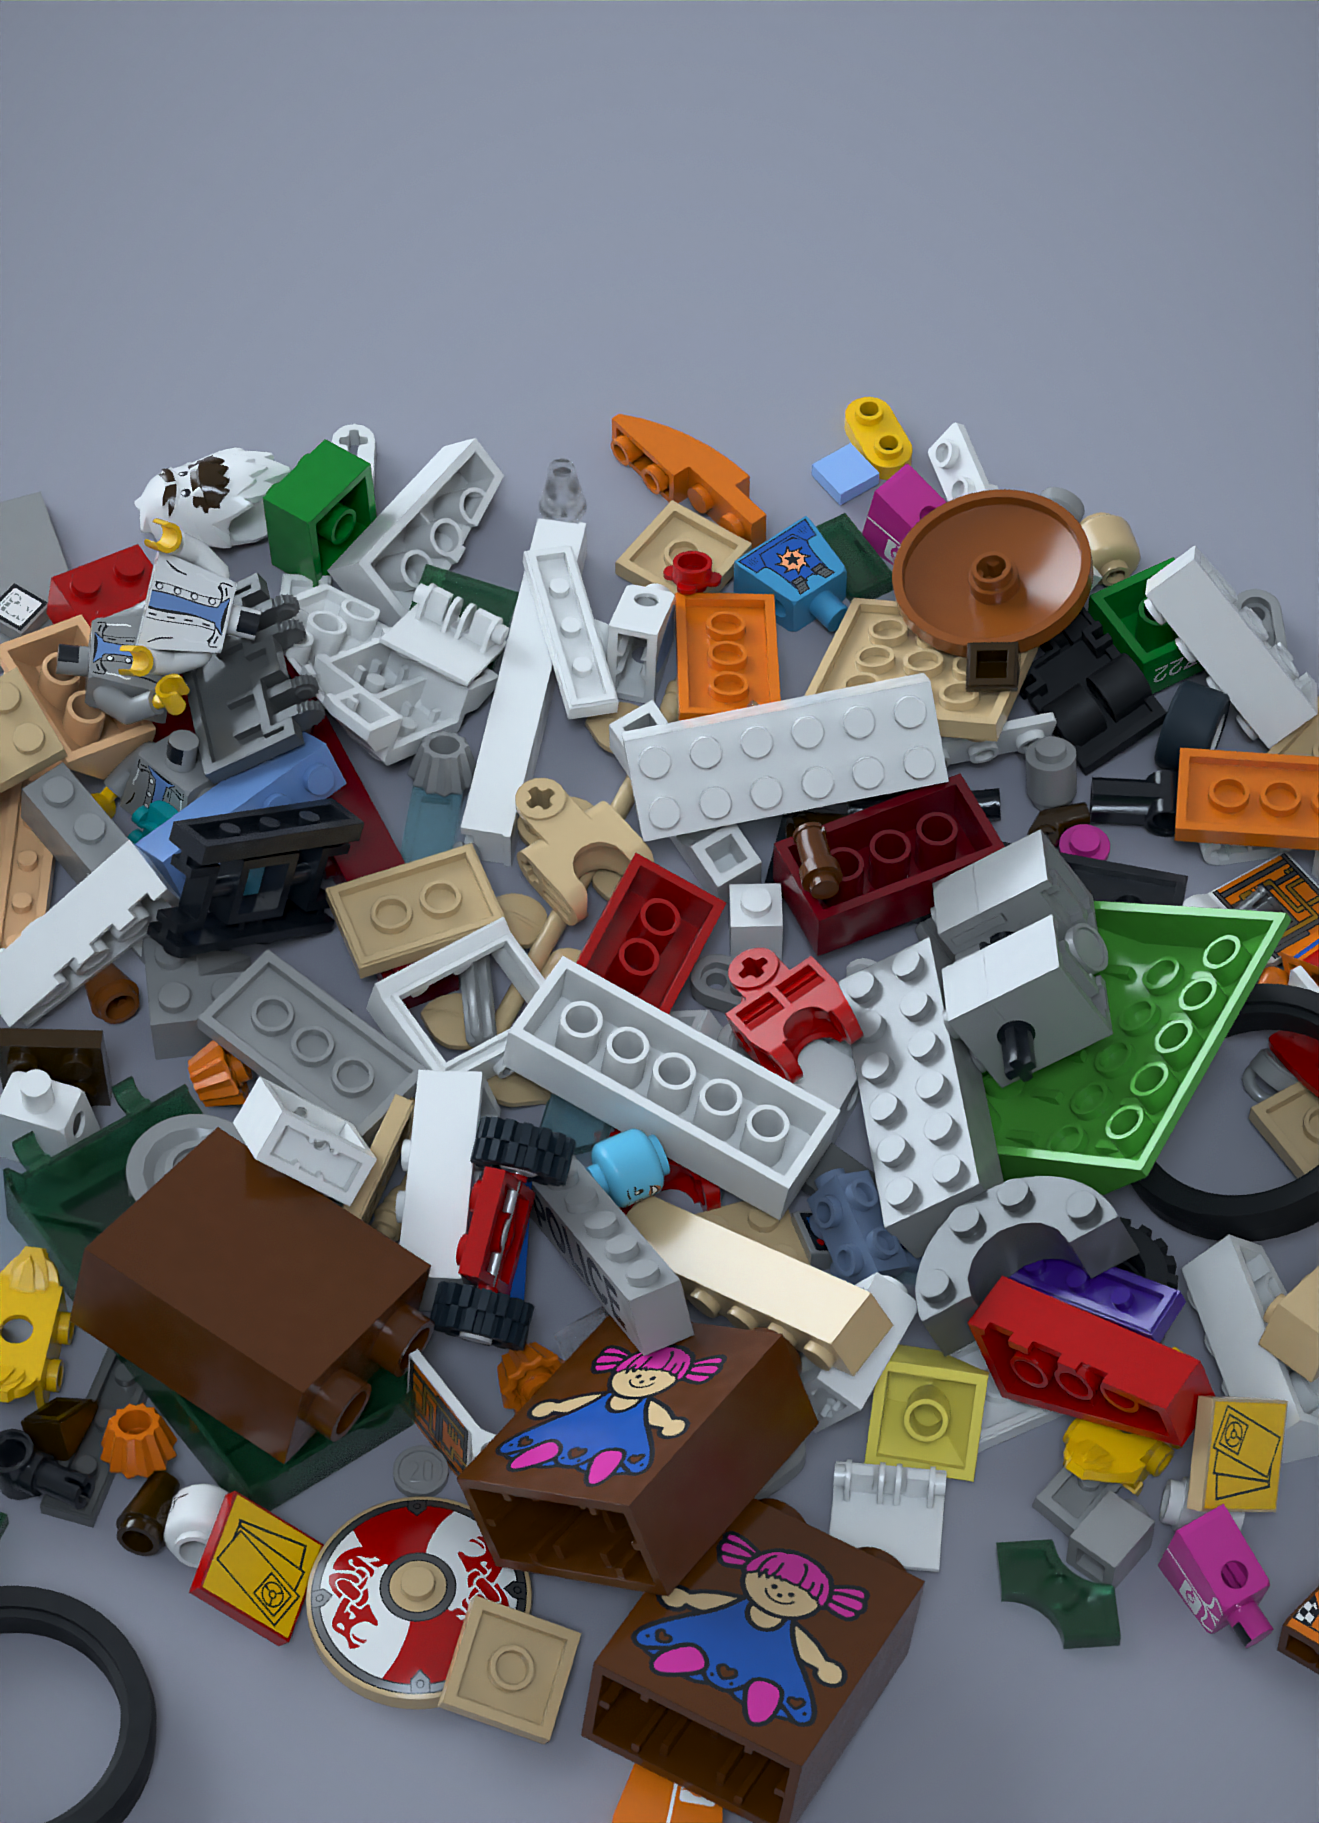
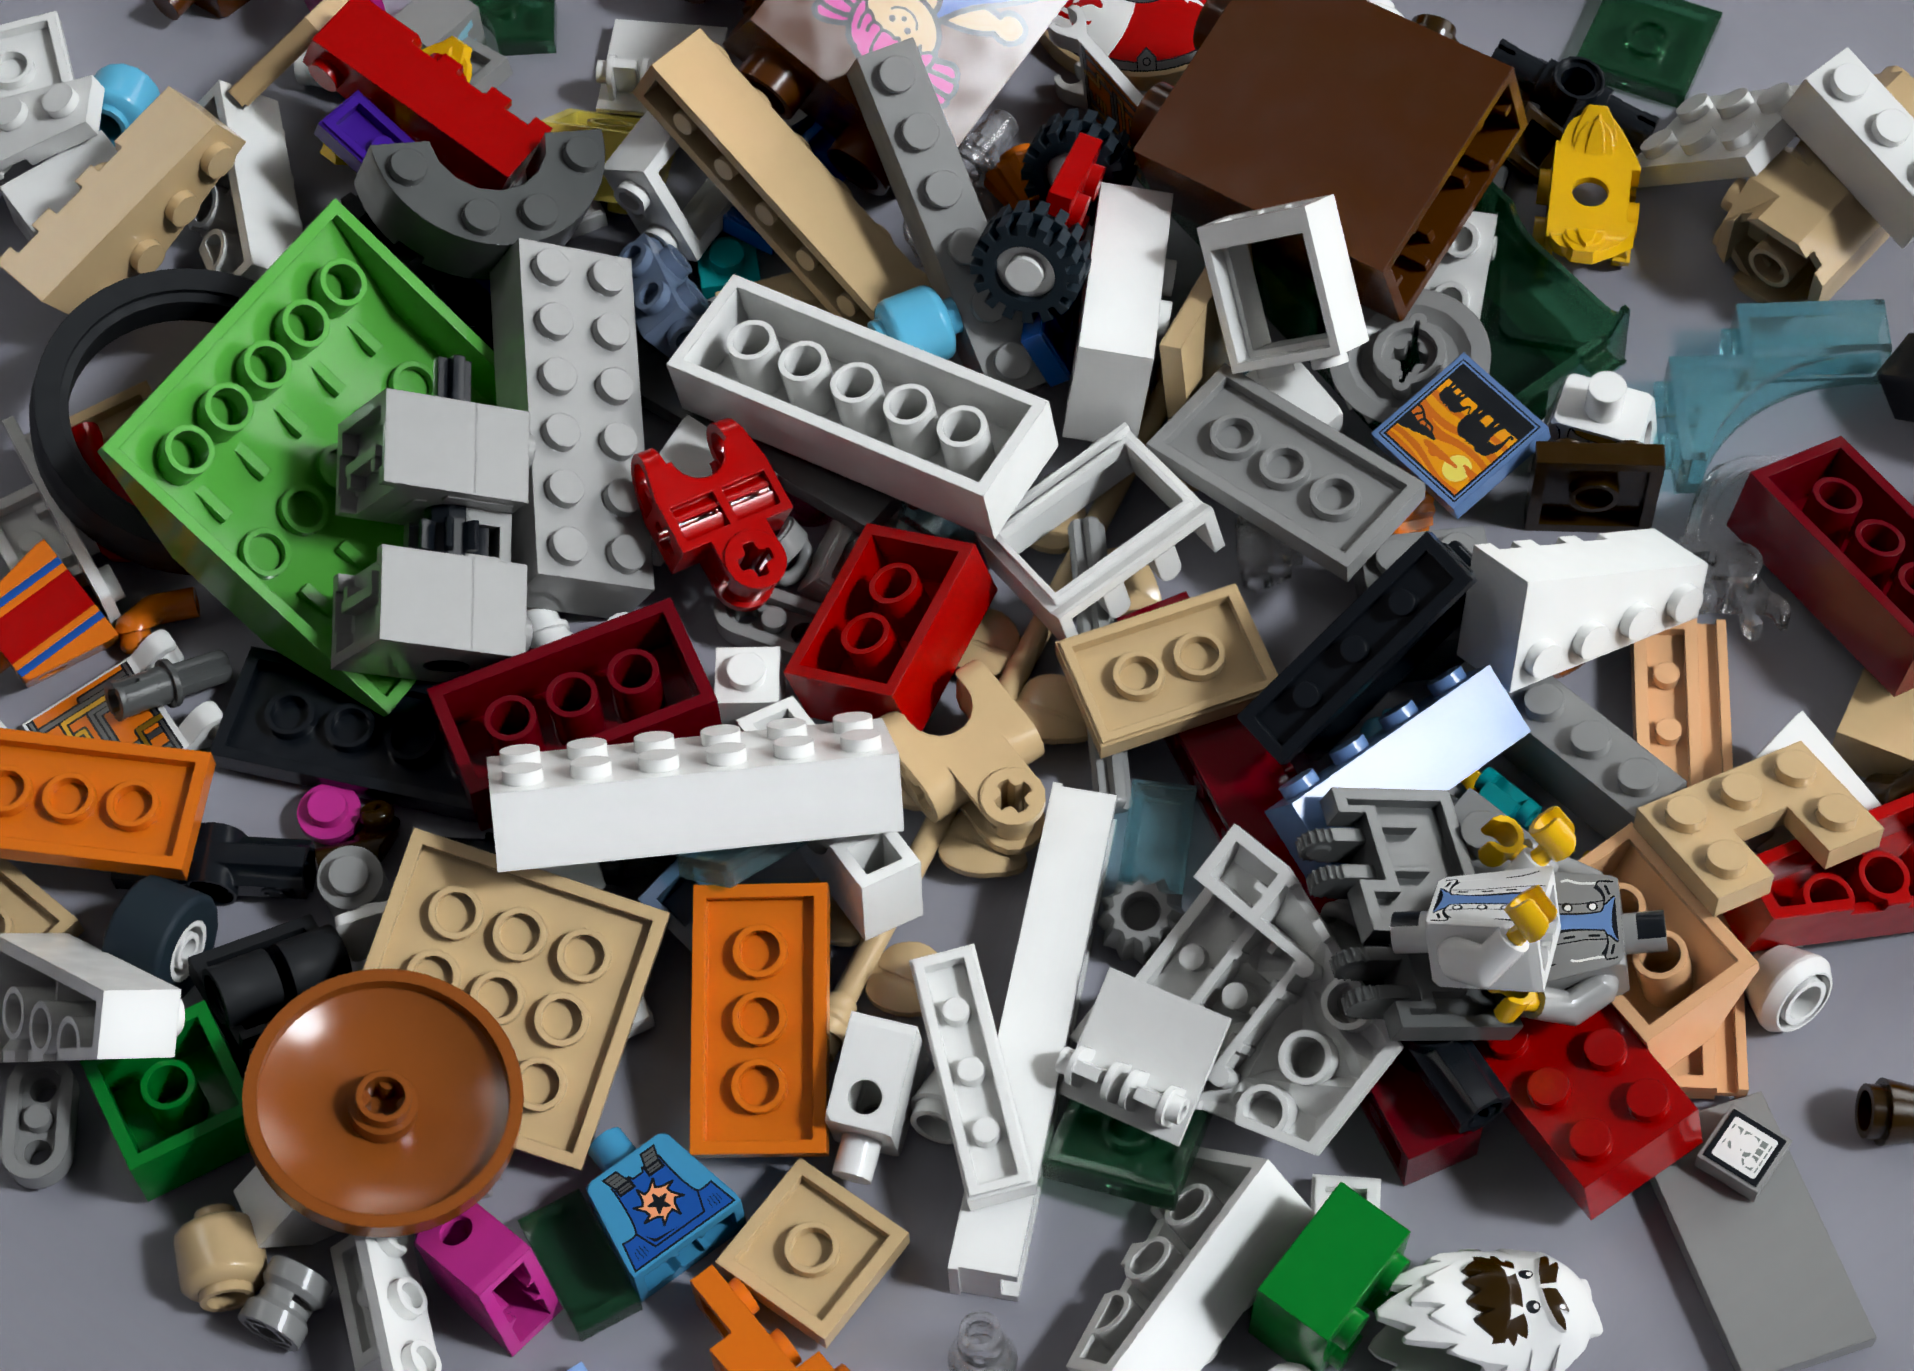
camera: 175 degrees left, 5 degrees up
(161, 1082) = (1460, 435): none -> tile
(692, 572) = (782, 1173): red plate -> none
(819, 870) = (663, 633): reddish brown animal -> none
(992, 666) = (405, 934): dark brown slope -> none
(1087, 947) = (350, 537): light grey piece -> none

